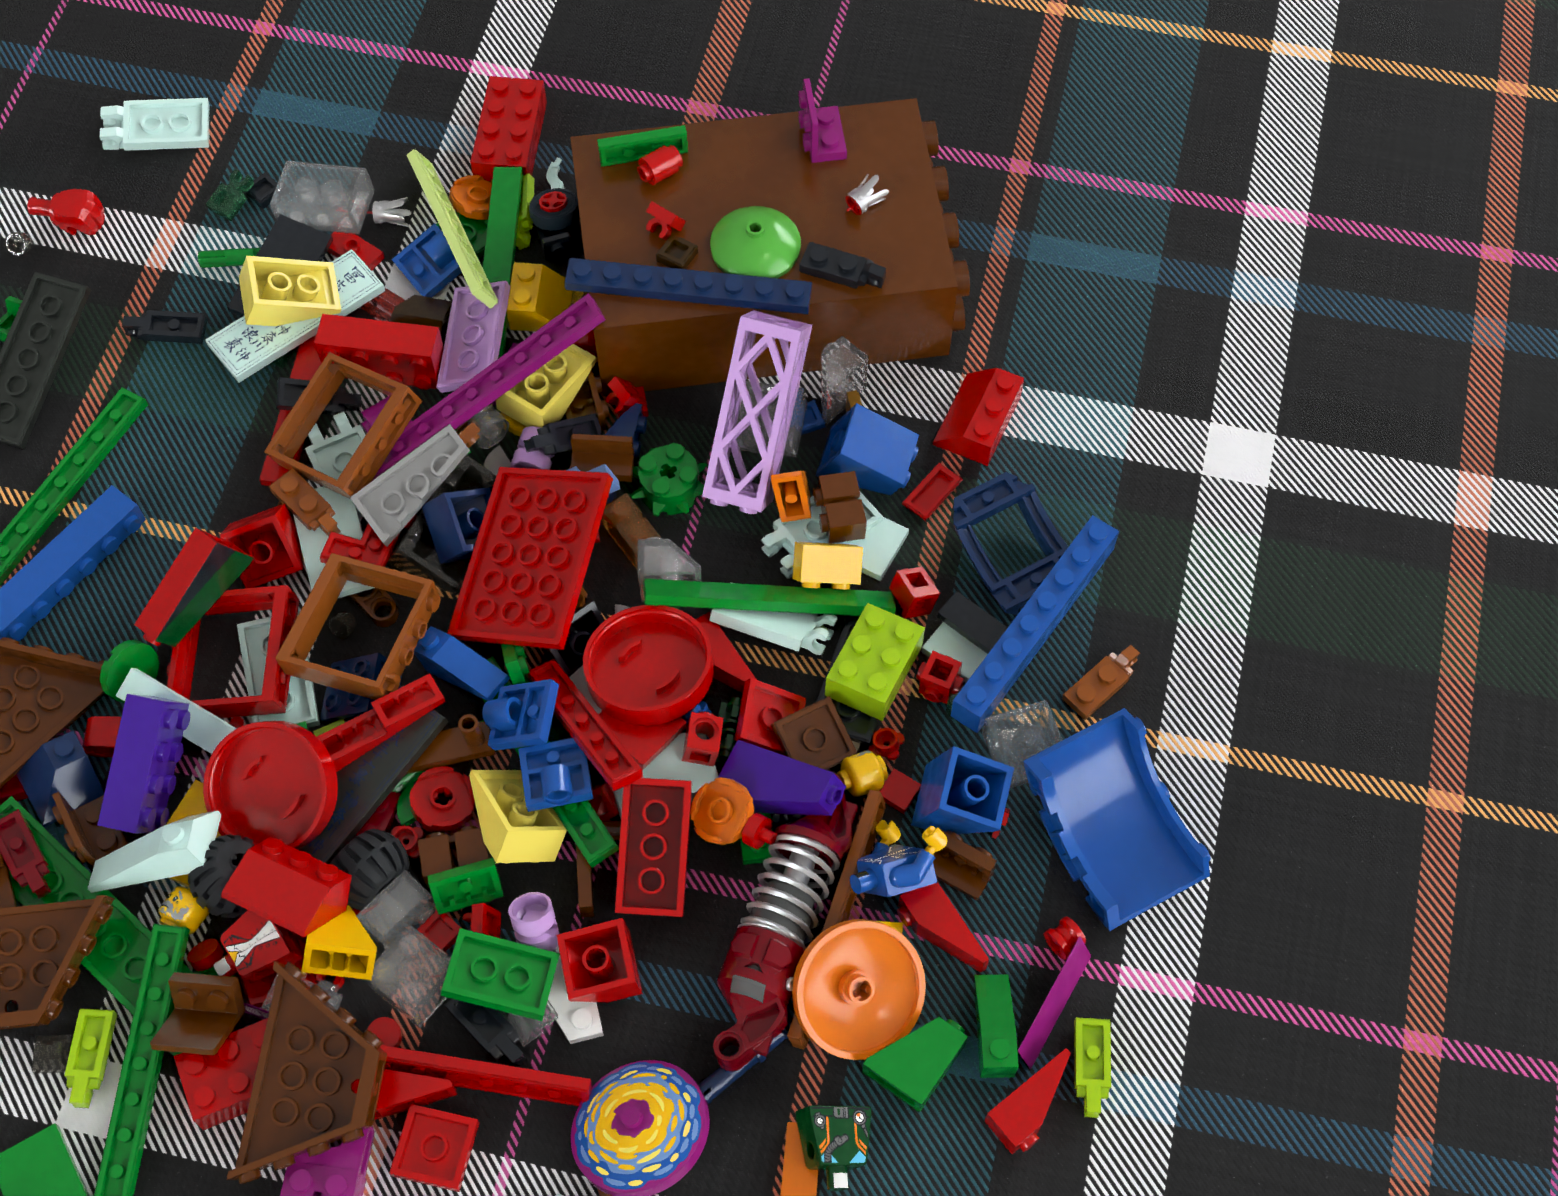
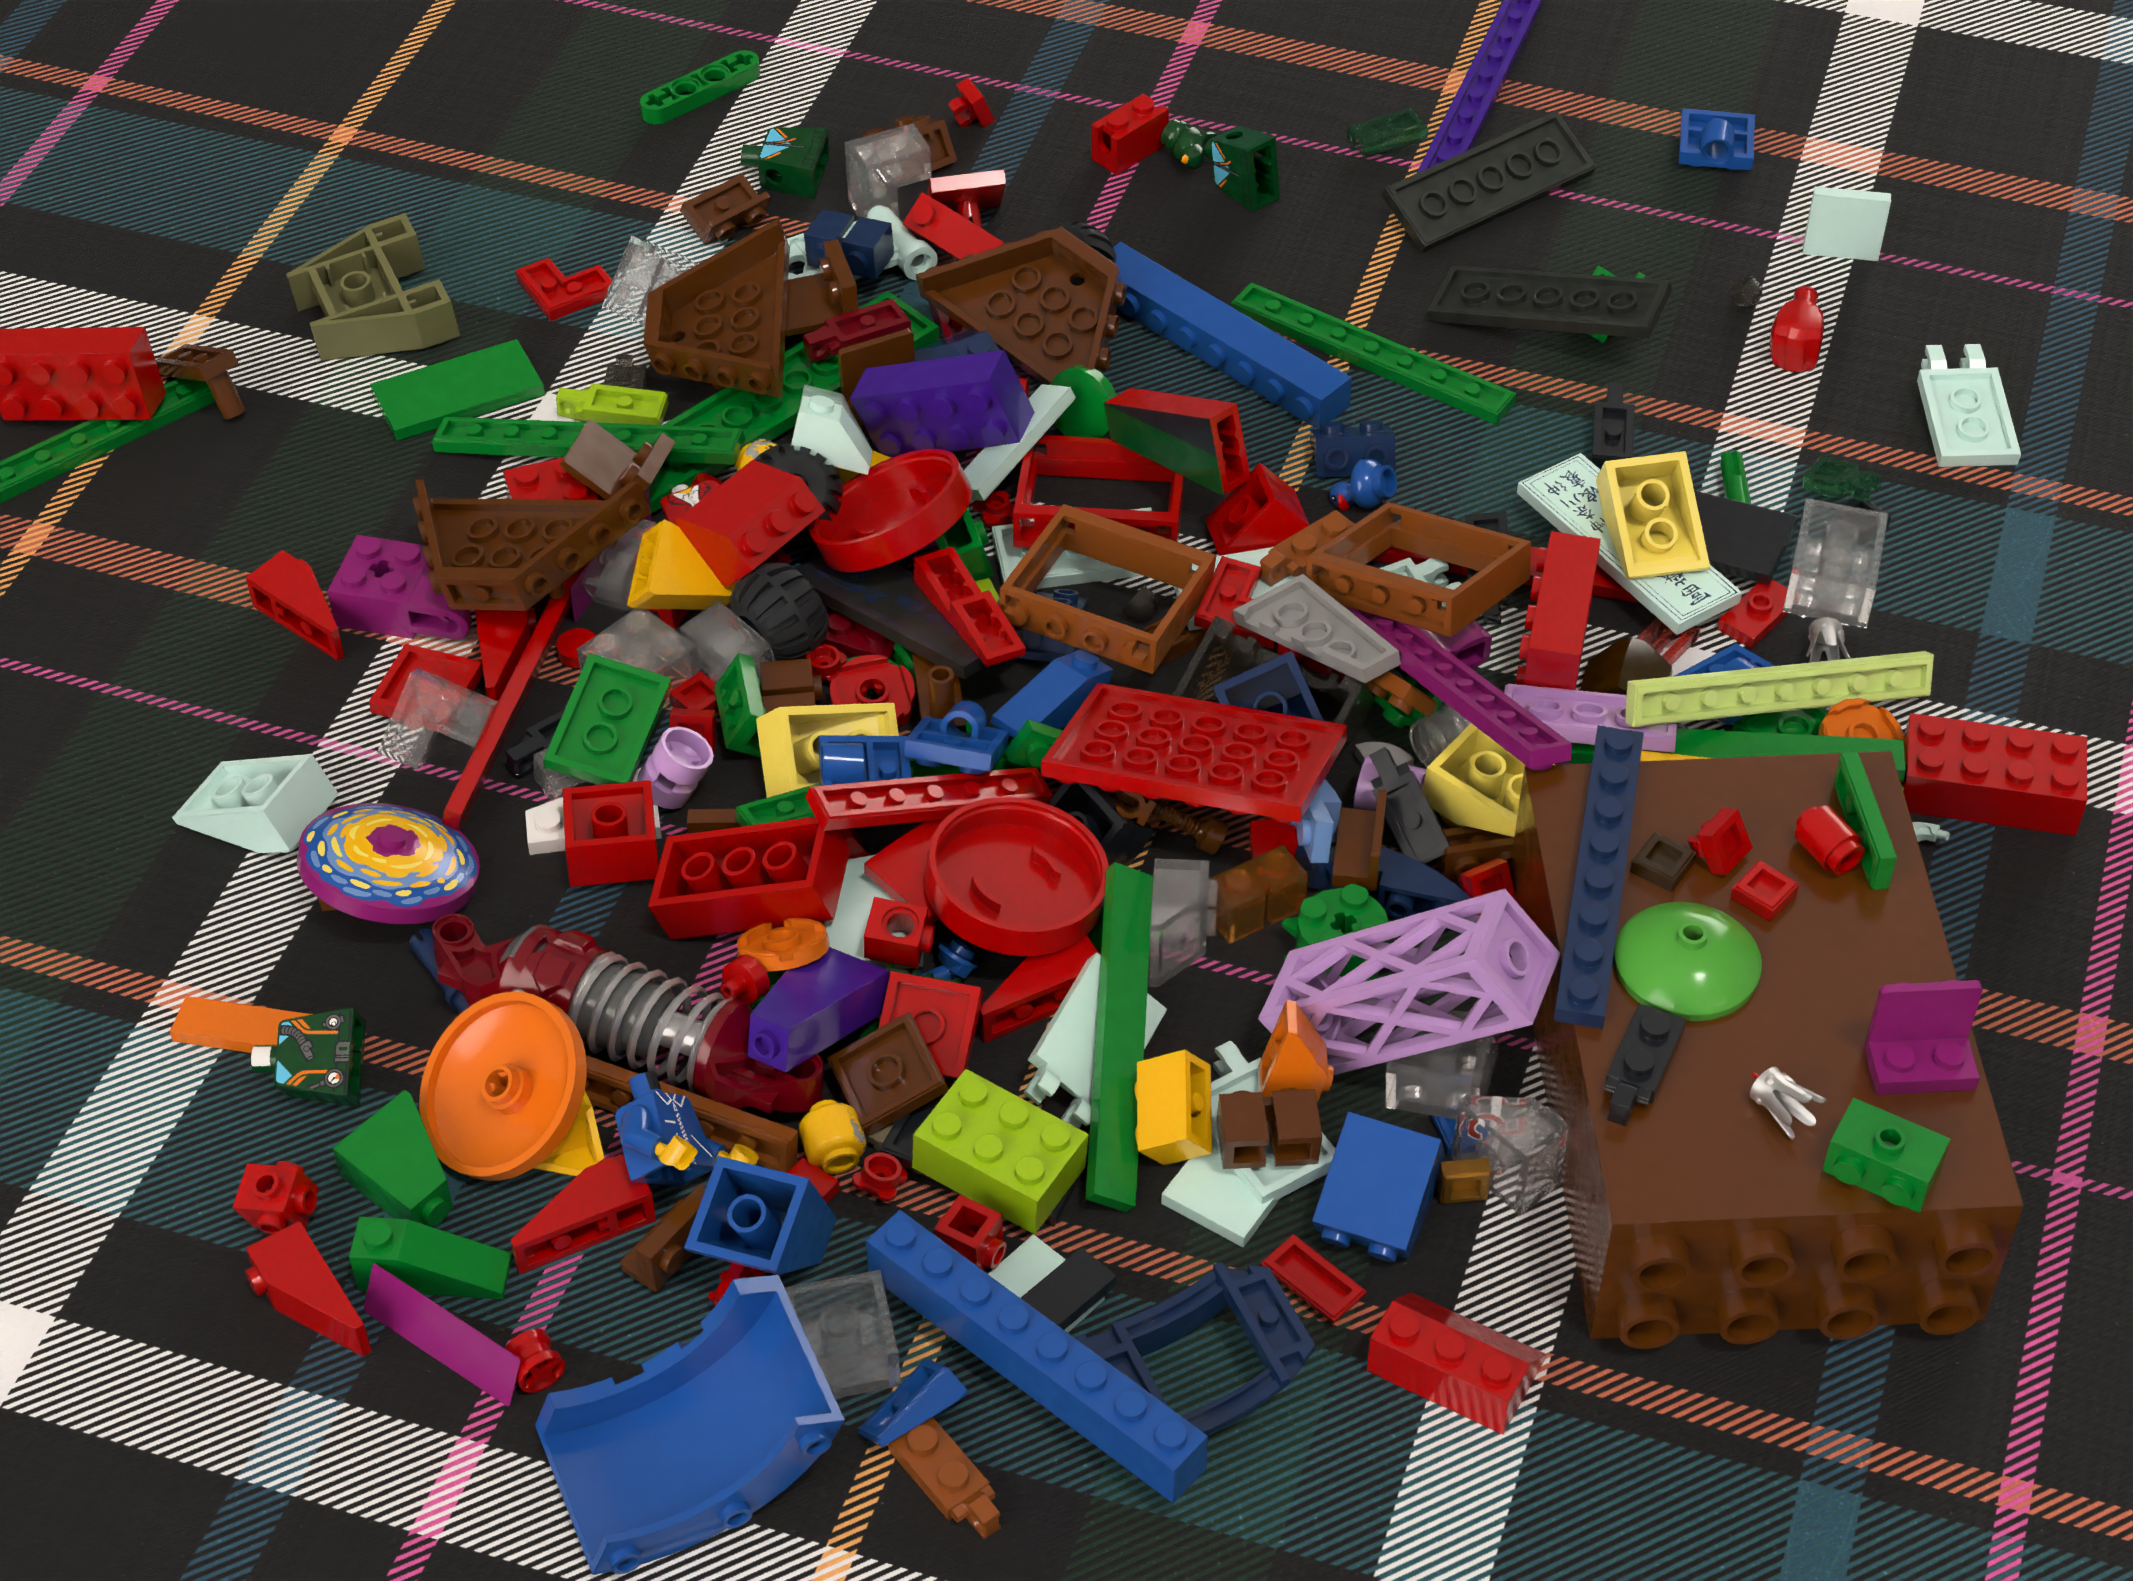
camera: 95 degrees right, 15 degrees down
(176, 490) = (1340, 448): none -> dark blue bracket
(225, 476) = (1367, 486): none -> blue animal
(488, 1117) = (431, 707): none -> clear brick
(697, 202) = (1764, 891): none -> red tile
(902, 149) = (1886, 1155): none -> green brick
(914, 591) = (1139, 1213): red brick -> none
(959, 1150) = (275, 1196): none -> red brick
(1063, 702) = (917, 1399): none -> blue slope
(1092, 1062) = (345, 1373): lime hinge -> none

